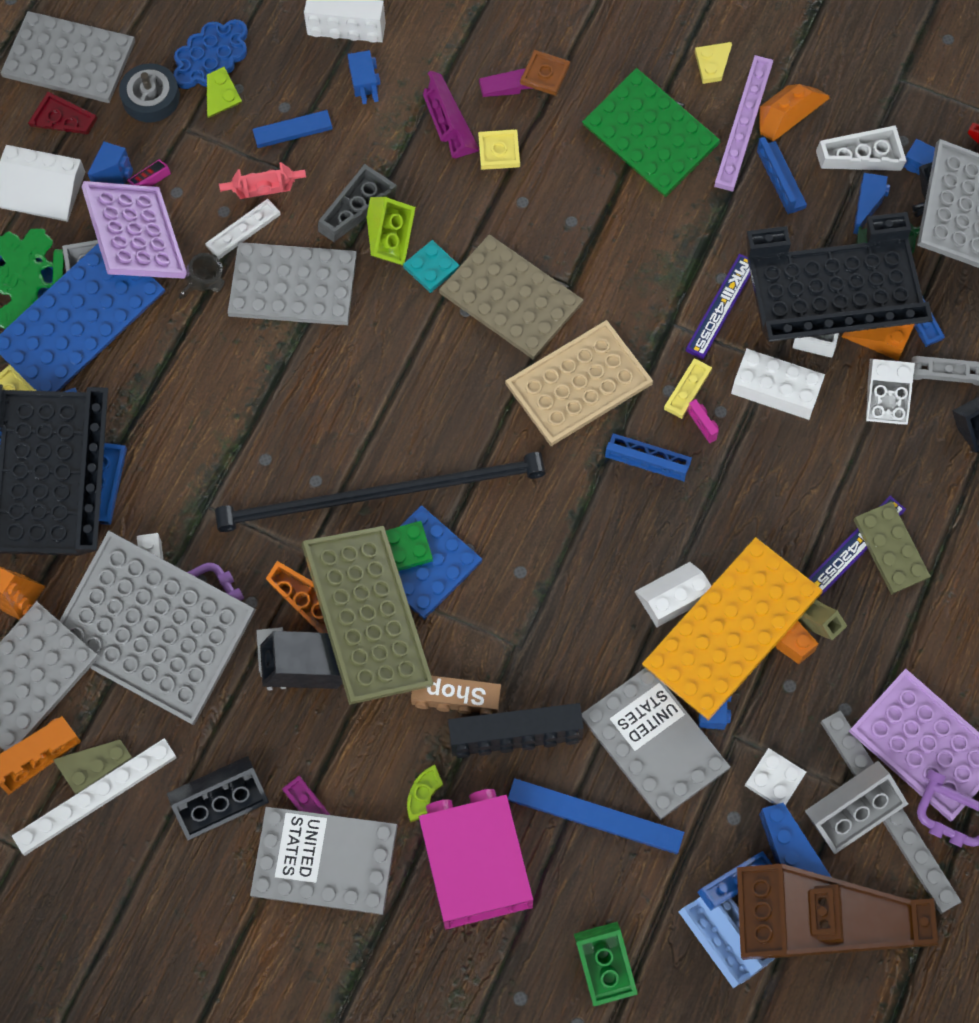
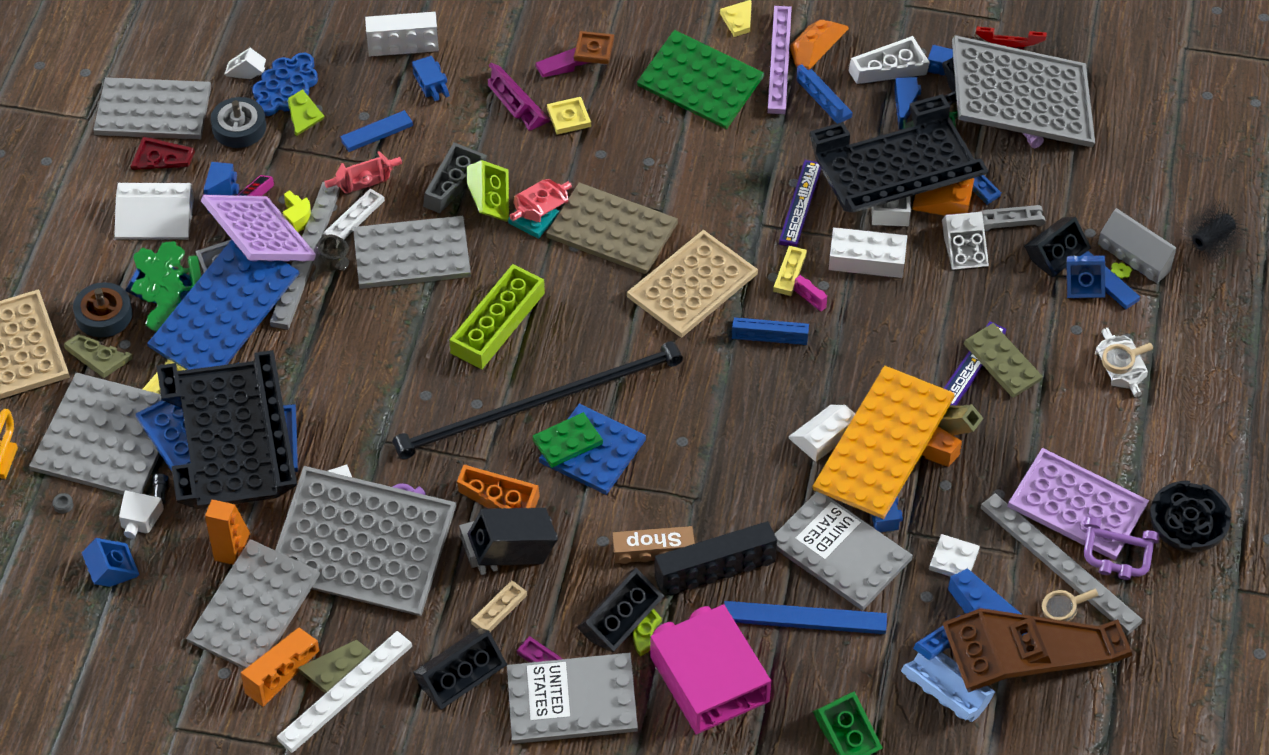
camera: 15 degrees left, 15 degrees down
(175, 24) = (246, 65): none -> white slope
(187, 216) = (297, 212): none -> neon yellow brick
(193, 244) = (313, 232): none -> light grey plate
(276, 734) = (499, 607): none -> tan plate
(360, 383) = (497, 316): none -> lime brick
(366, 614) = (558, 488): olive plate -> none
(400, 768) = (620, 611): none -> black slope
(431, 257) = (532, 203): none -> coral plate
(856, 807) = (1031, 561): light grey slope -> none
(876, 866) = (1063, 605): none -> piece

